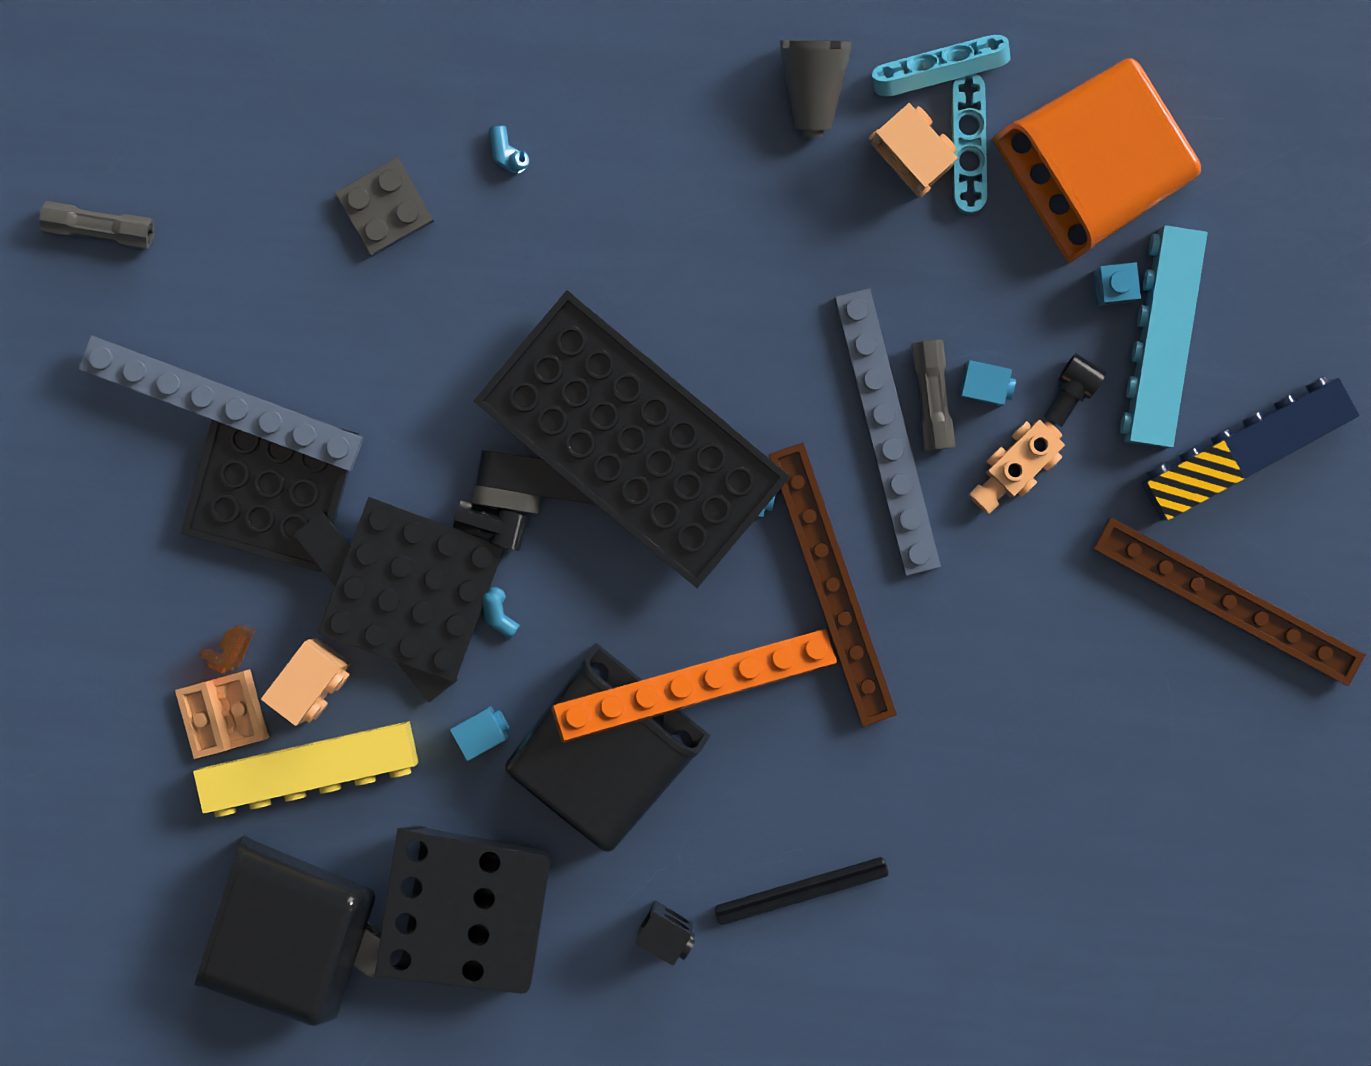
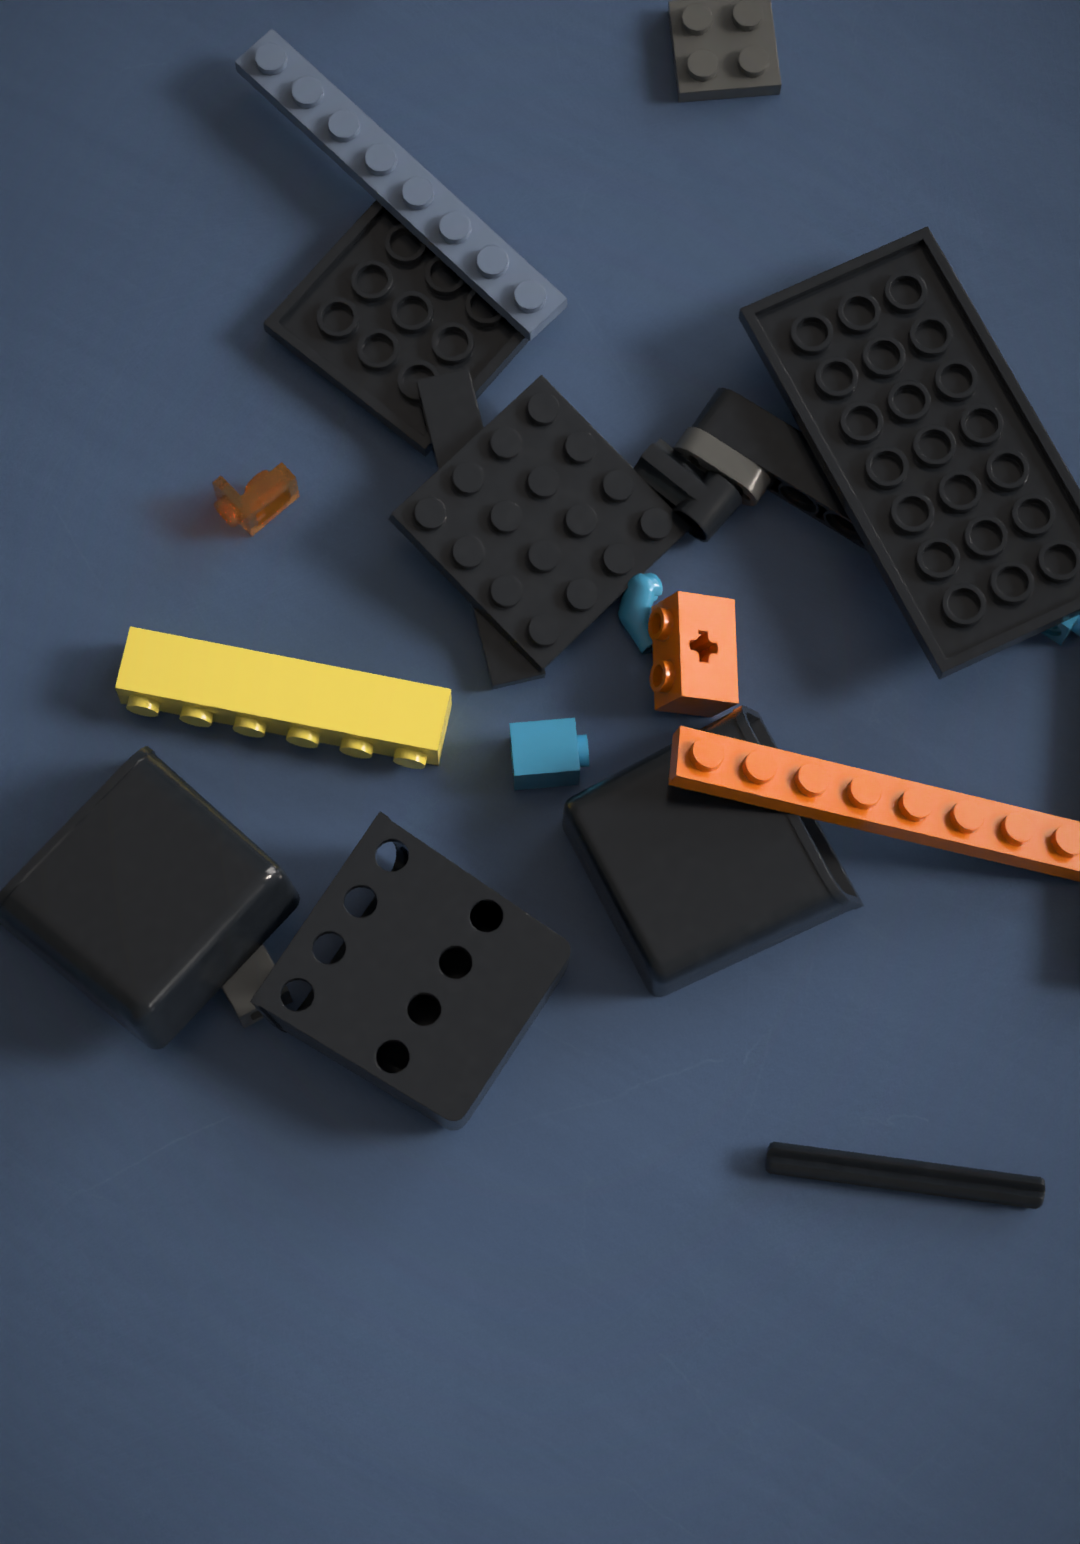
camera: 20 degrees right, 15 degrees down
(222, 714) = (201, 581): light nougat slope -> none
(306, 681) = (343, 575): light nougat brick -> none
(504, 154) = (911, 50): dark azure arm -> none
(542, 614) = (694, 654): none -> brick
(666, 934) = (688, 1136): black brick -> none

